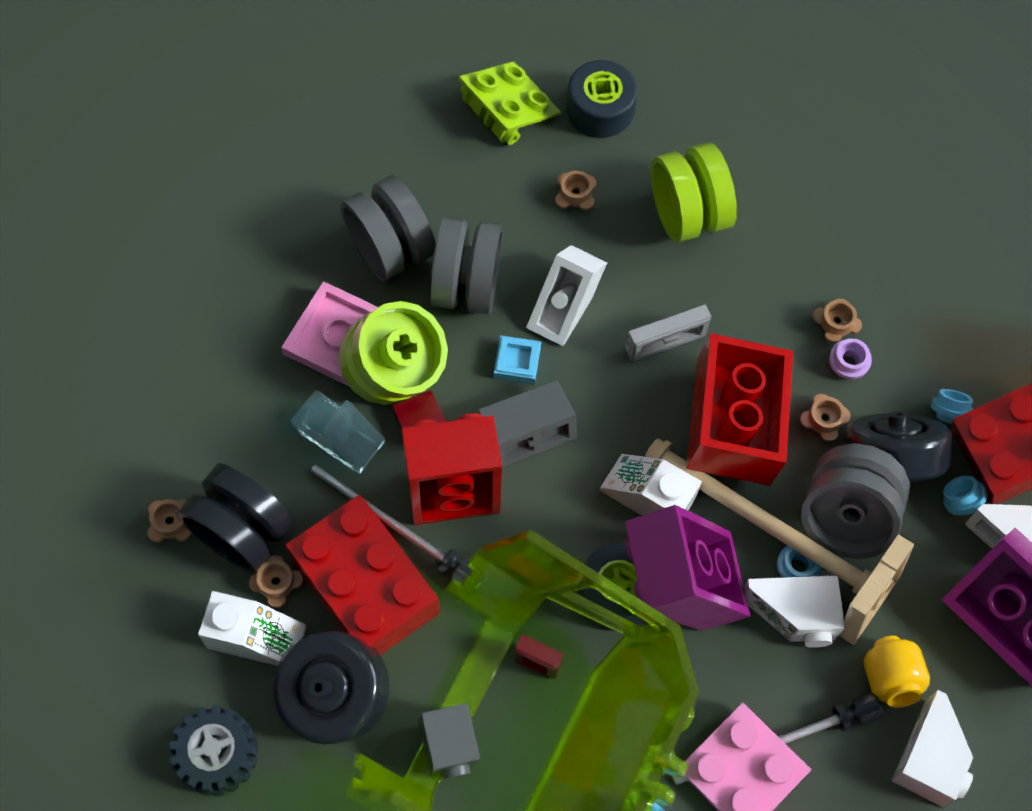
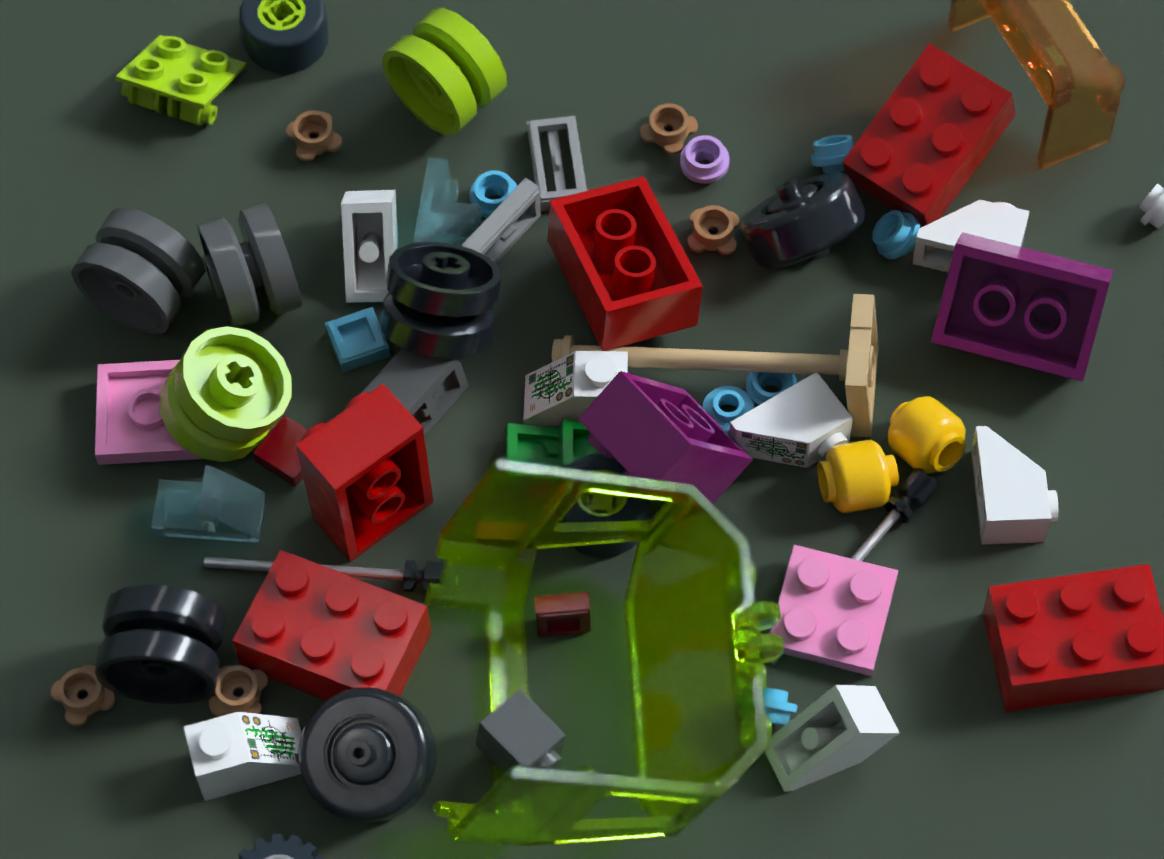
camera: 25 degrees left, 5 degrees down
(587, 365) = (440, 299): none -> black wheel
(598, 518) = (547, 444): none -> green slope
(627, 302) = (439, 213): none -> clear light blue slope
(677, 293) = (490, 184): none -> medium azure plate
(751, 273) = (551, 126): none -> light grey tile
(762, 552) = (727, 396): none -> medium azure plate
(823, 675) = (857, 476): none -> yellow head
(855, 501) = (792, 289): dark grey wheel -> none

